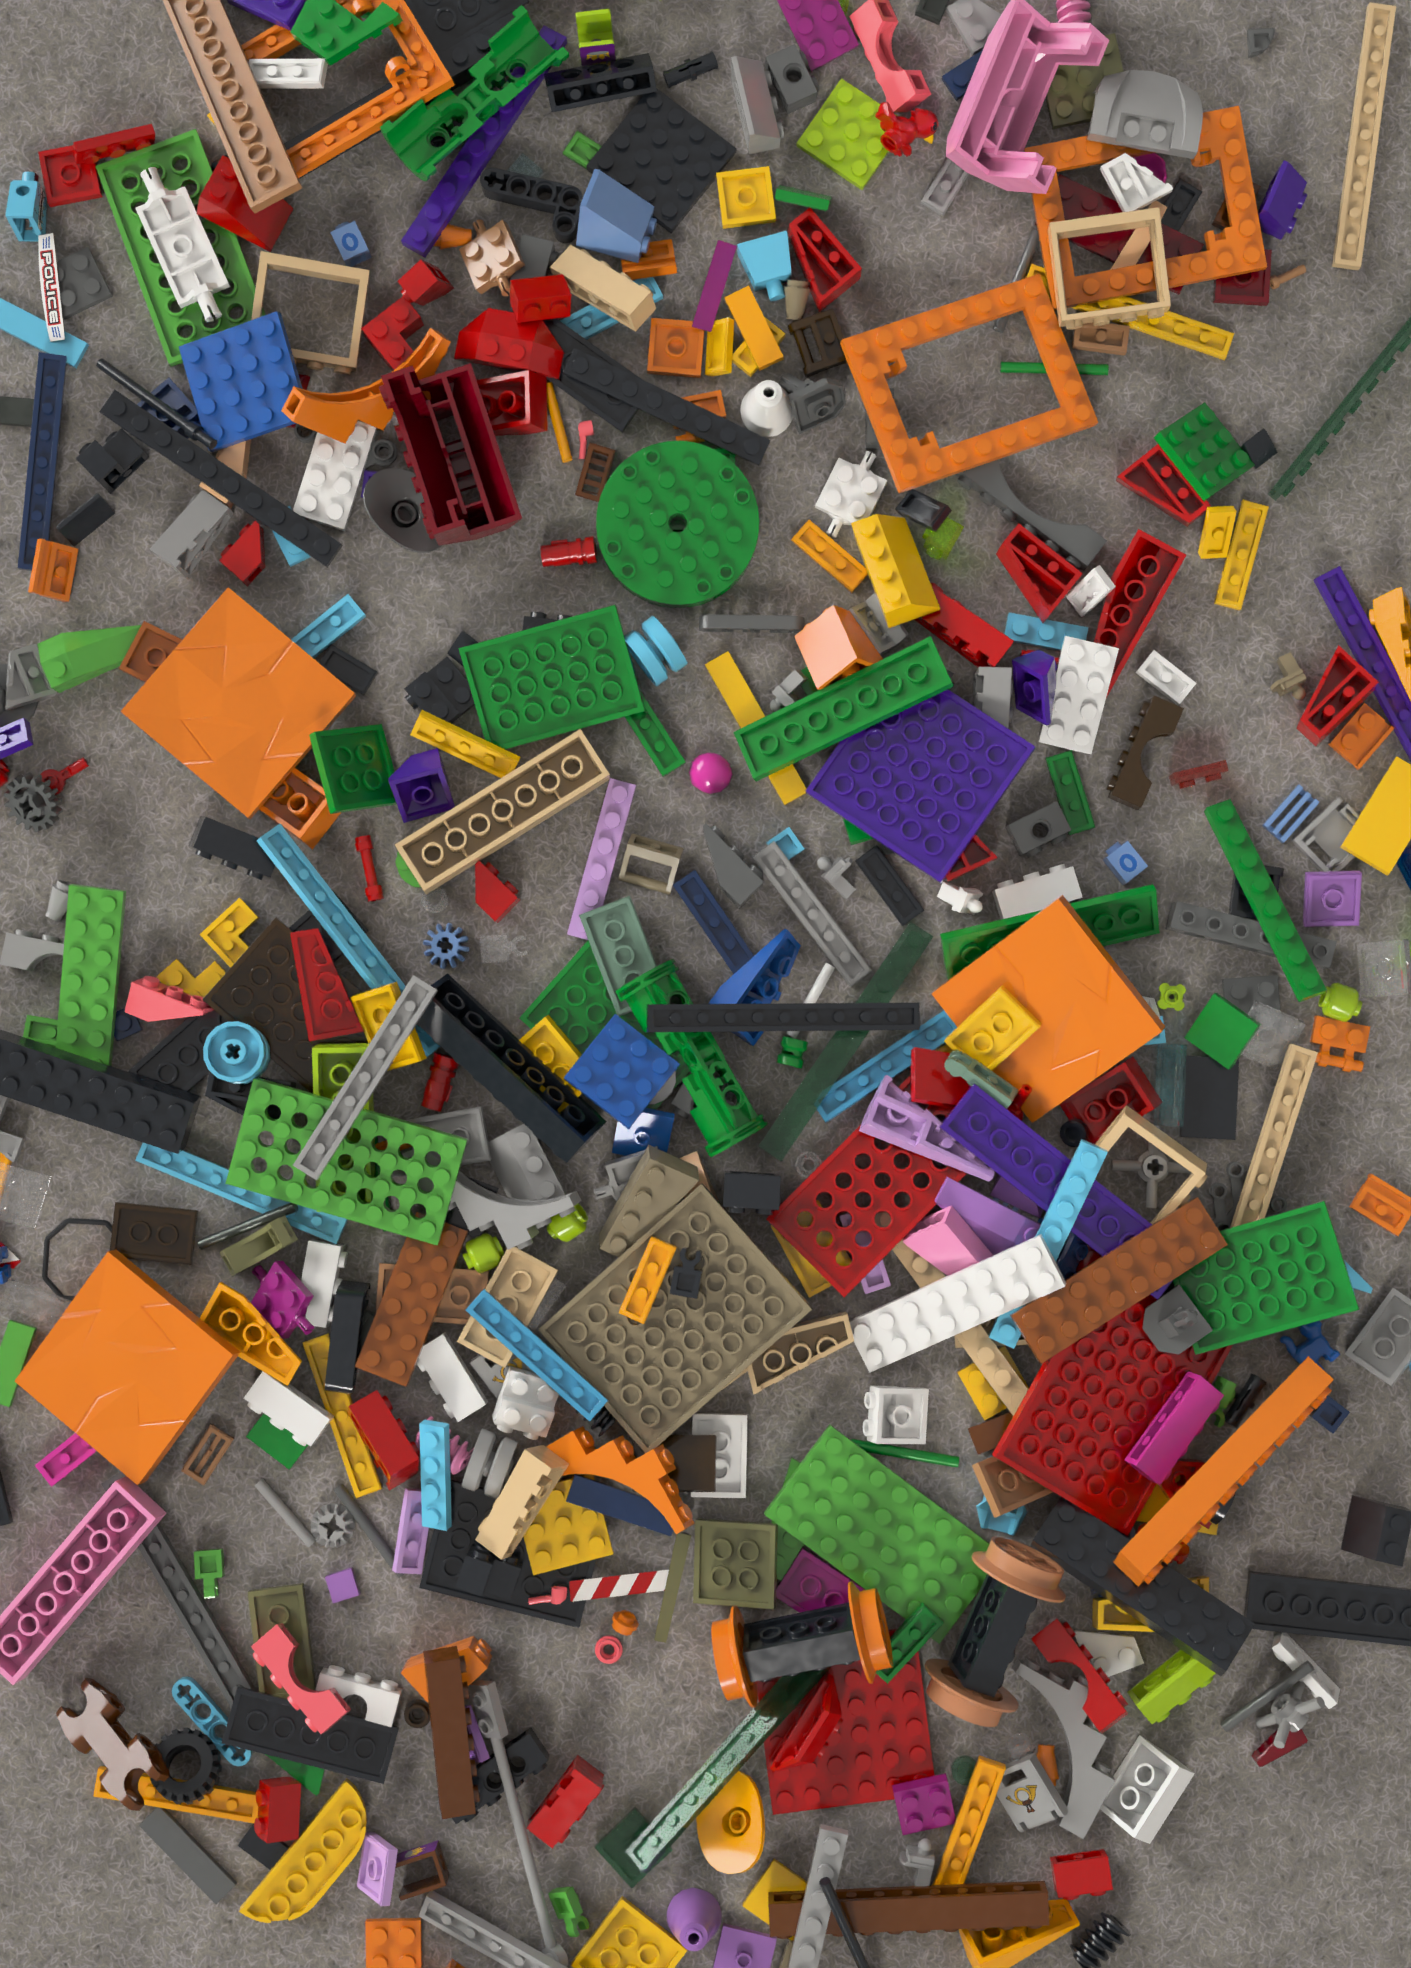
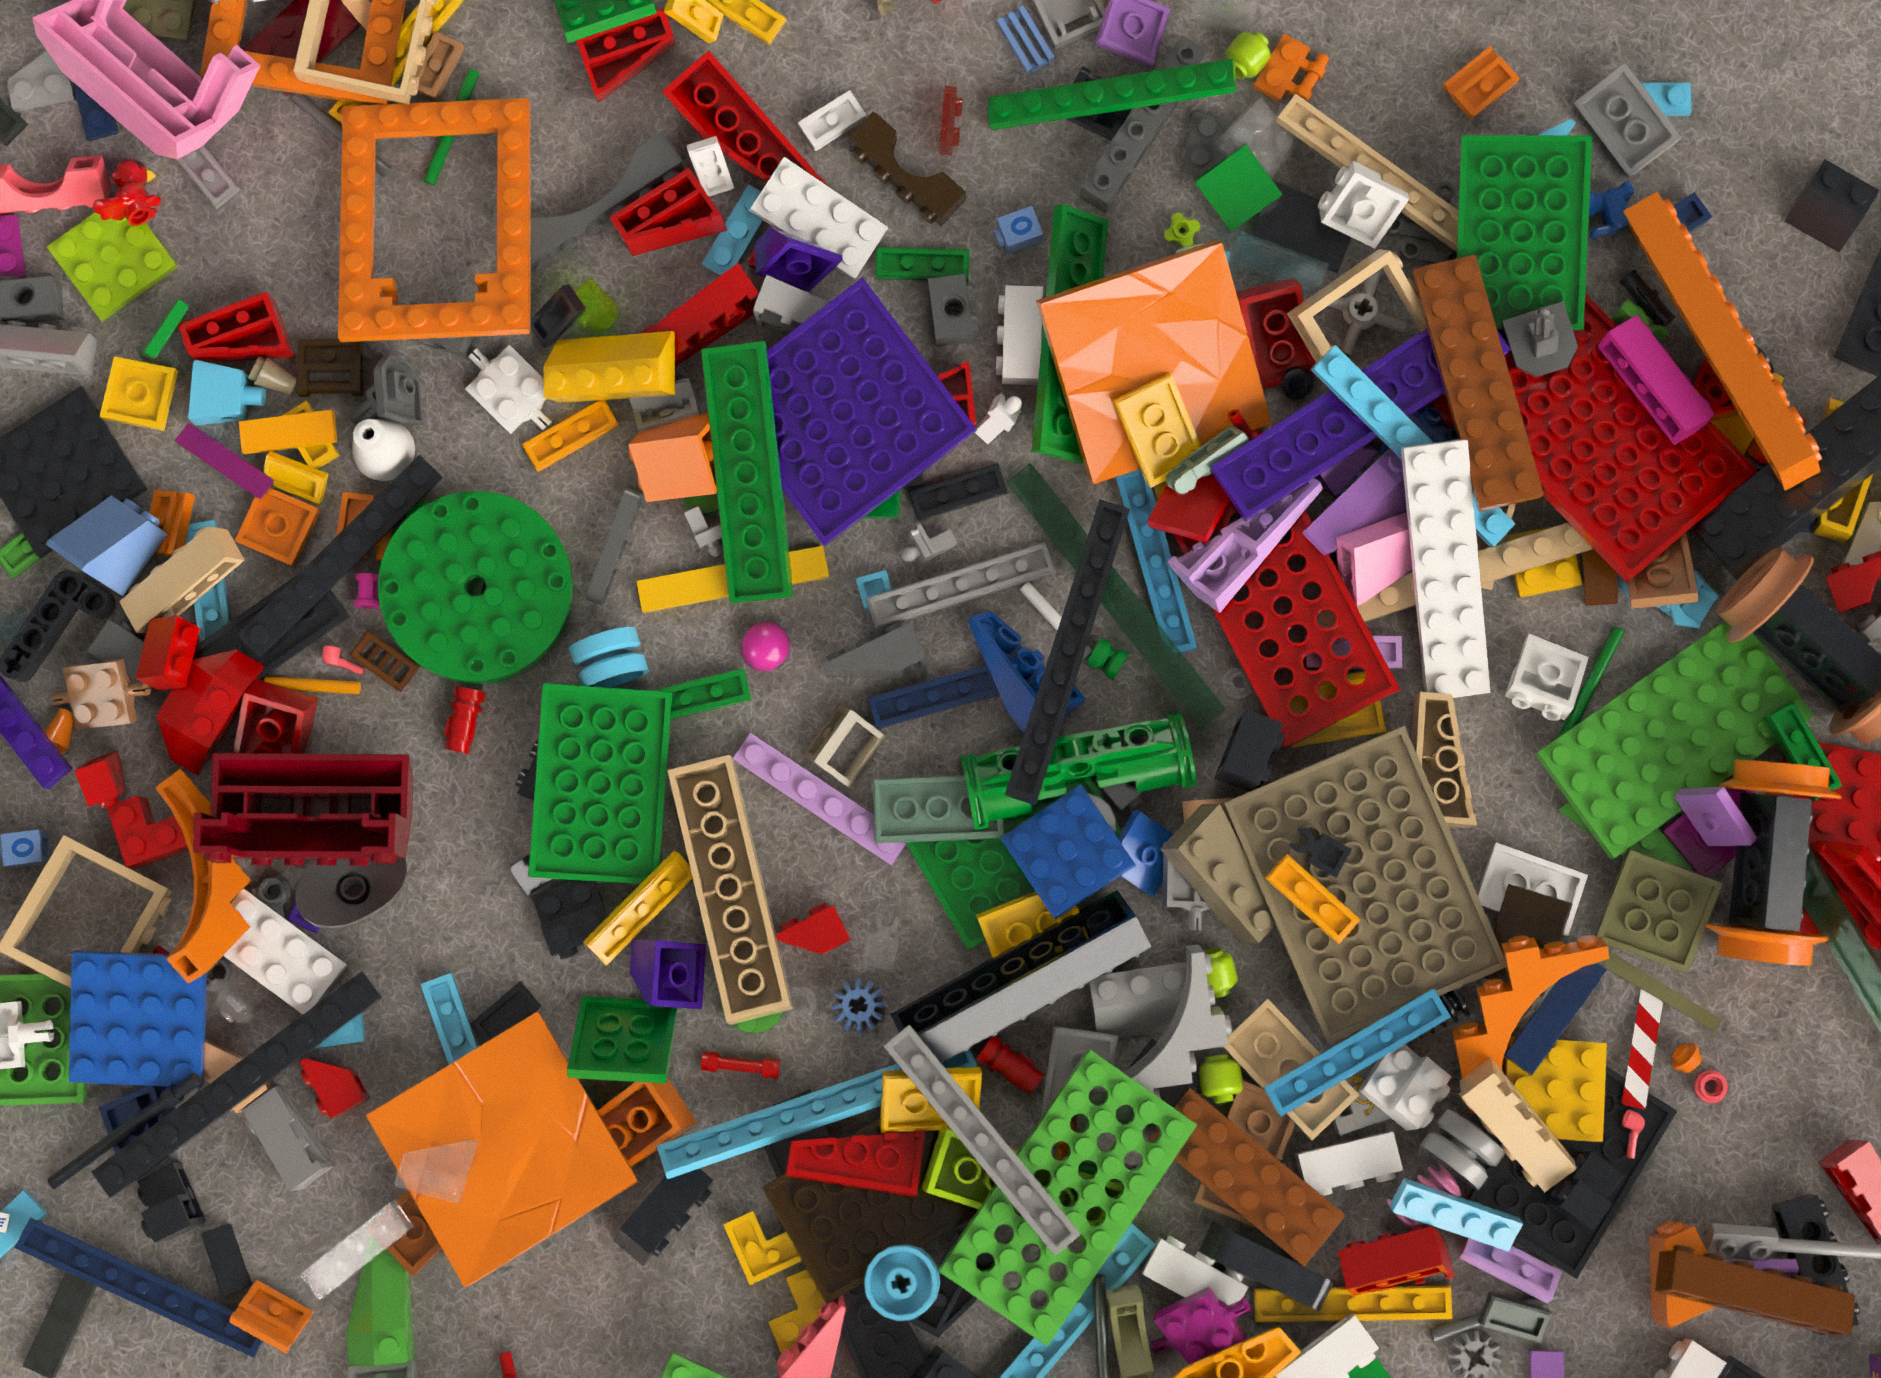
camera: 70 degrees left, 5 degrees down
(124, 618) = (357, 1250): none -> clear tile
(202, 659) = (437, 1170): none -> clear wing
(282, 453) = (233, 1003): none -> clear plate
(373, 1547) = (1514, 1317): none -> pearl dark grey tile
(413, 1721) = (1729, 1329): dark brown plate -> none
(646, 438) = (367, 591): none -> dark pink bush
(823, 1586) = (1715, 816): none -> medium lavender plate
(1241, 1137) = (1361, 204): none -> white plate

